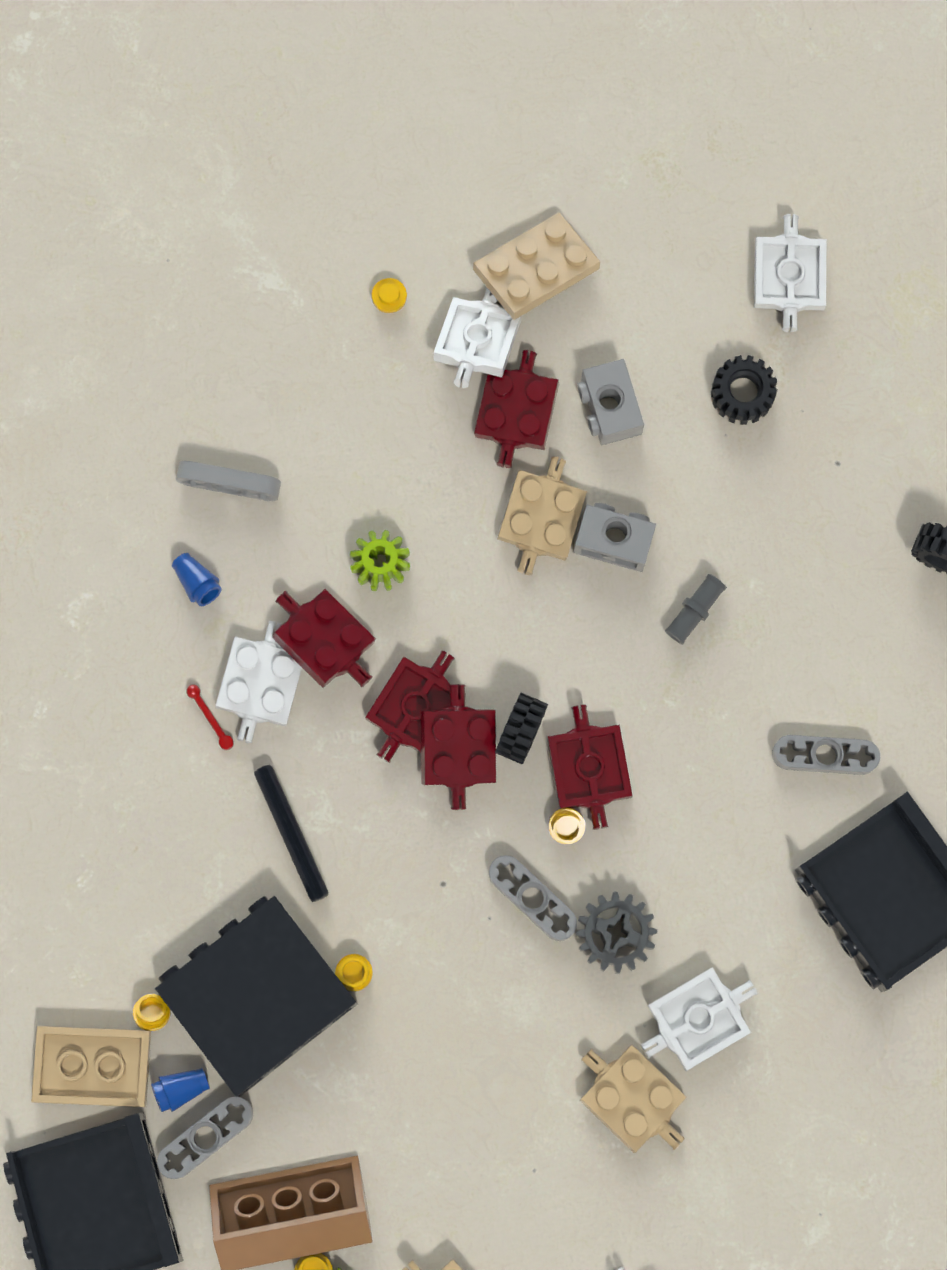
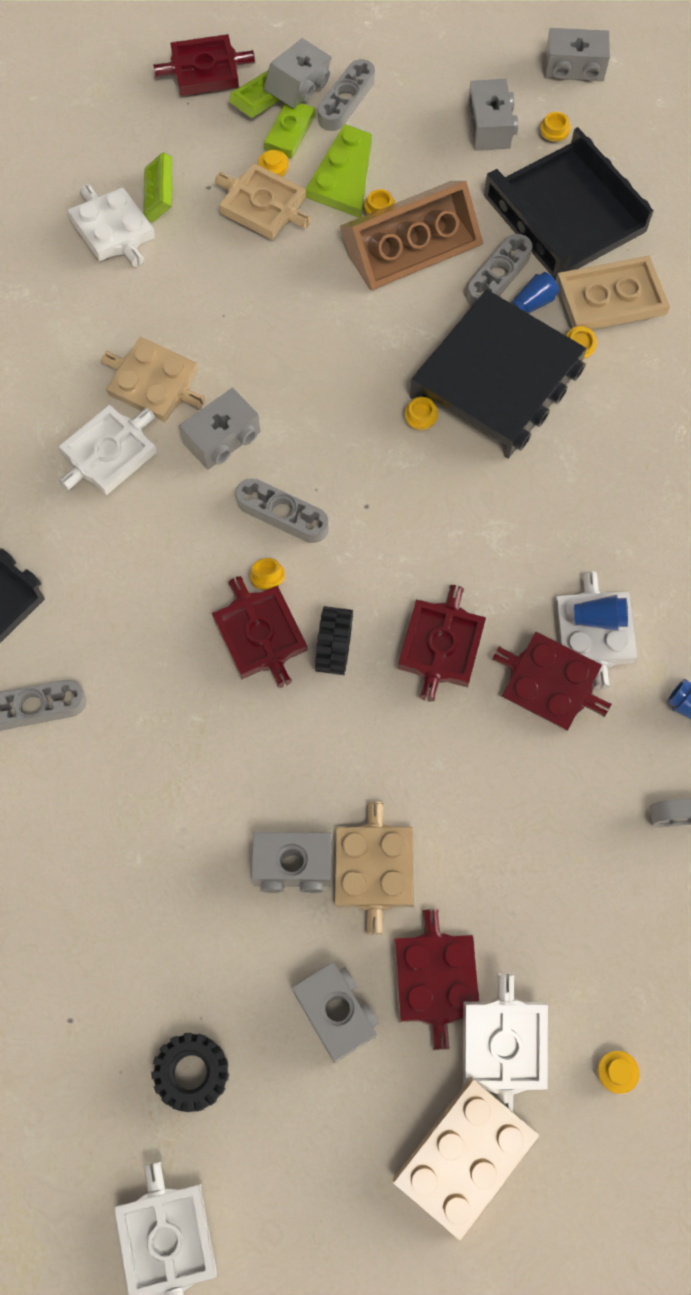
camera: 165 degrees right, 10 degrees down
(225, 742) = (605, 571): red hinge -> none
(254, 680) = (602, 613): none -> blue cone
(291, 833) = (517, 509): black axle -> none
(366, 565) = (533, 762): lime gear -> none
(458, 746) = (390, 614): dark red plate -> none
(560, 1025) = (220, 429): none -> light grey brick
(632, 939) = (186, 488): dark grey gear -> none
(695, 609) = (190, 811): dark grey pin -> none

